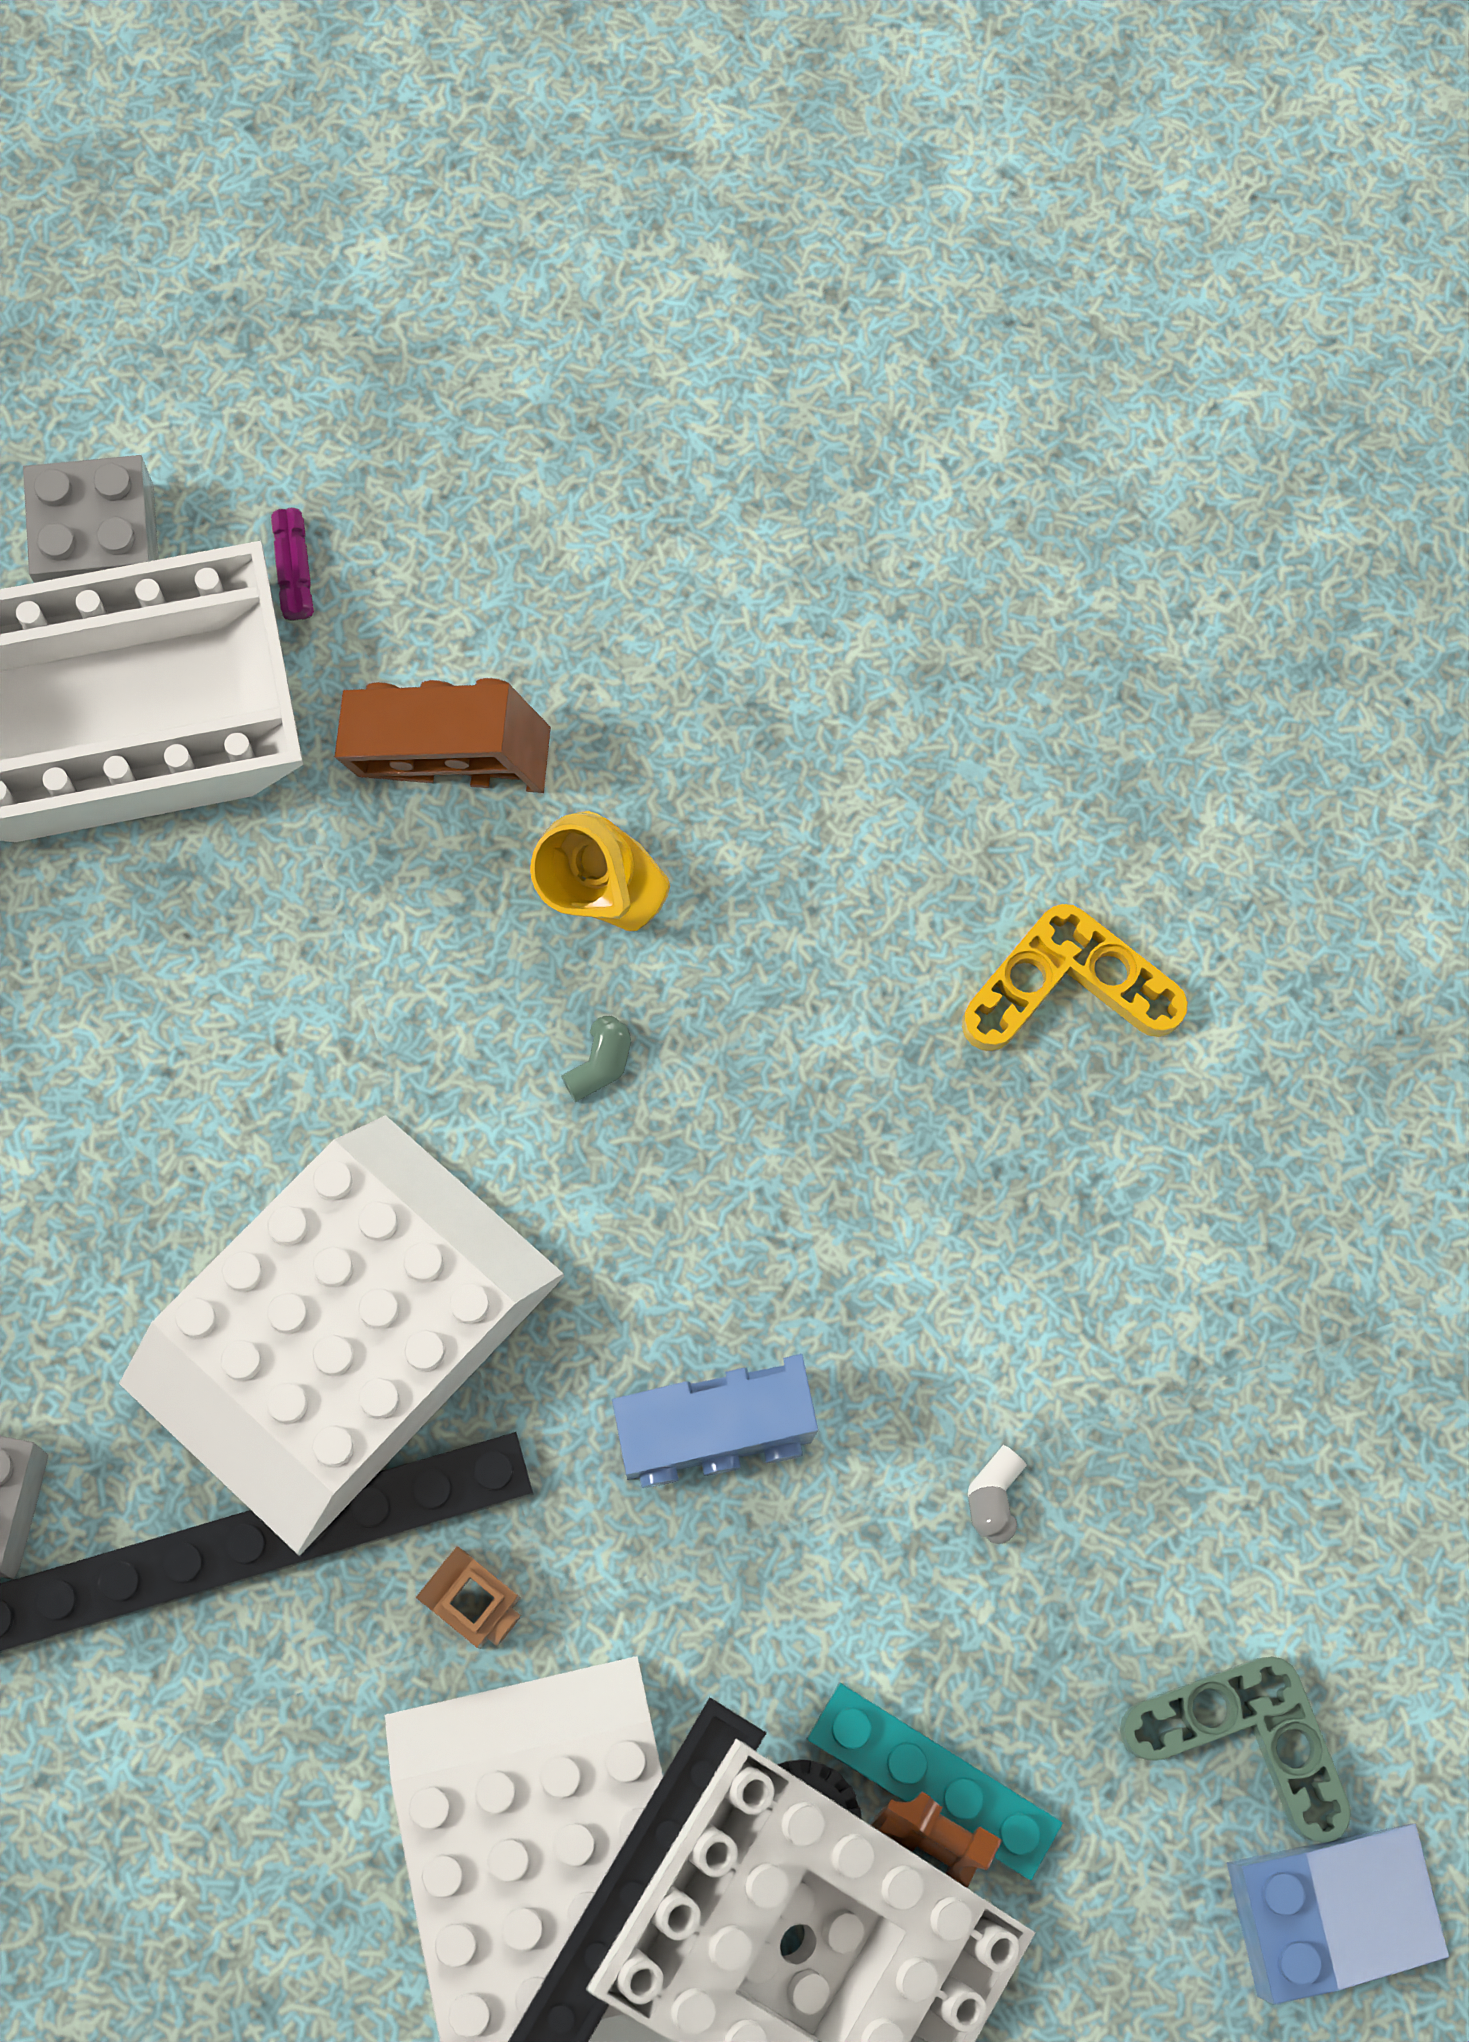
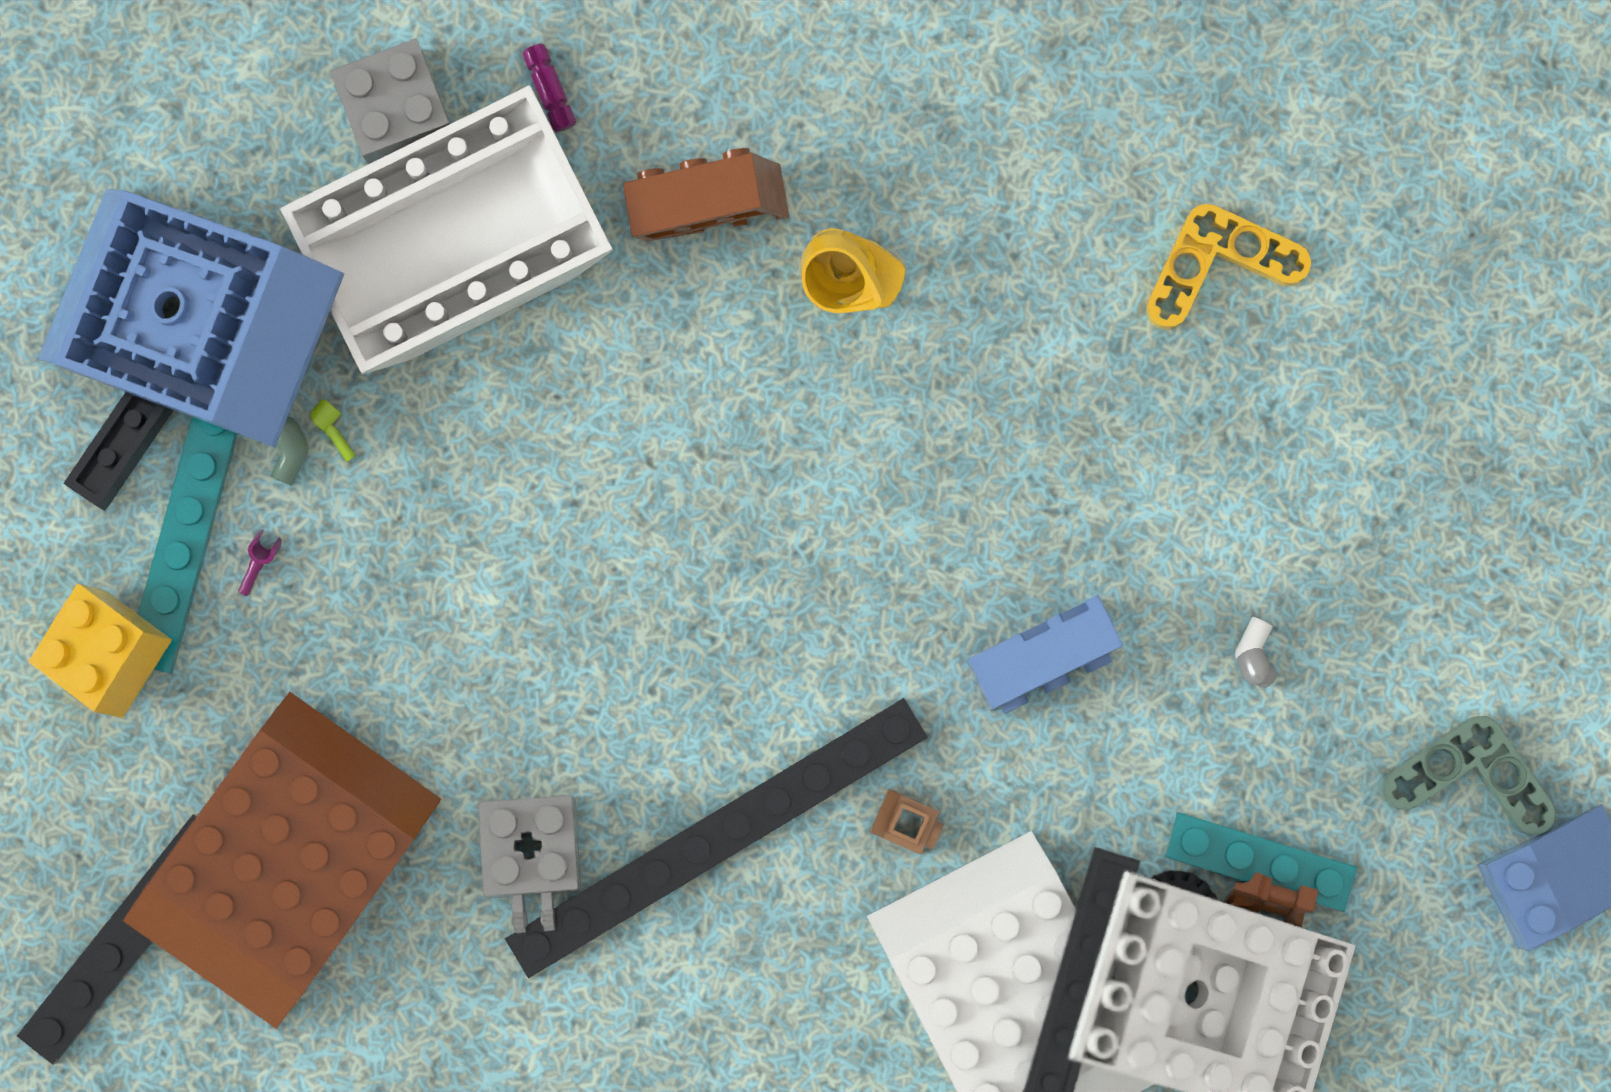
camera: 10 degrees left, 10 degrees up
(335, 1327) = (758, 657): white slope -> none
(606, 1059) = (893, 410): sand green arm -> none

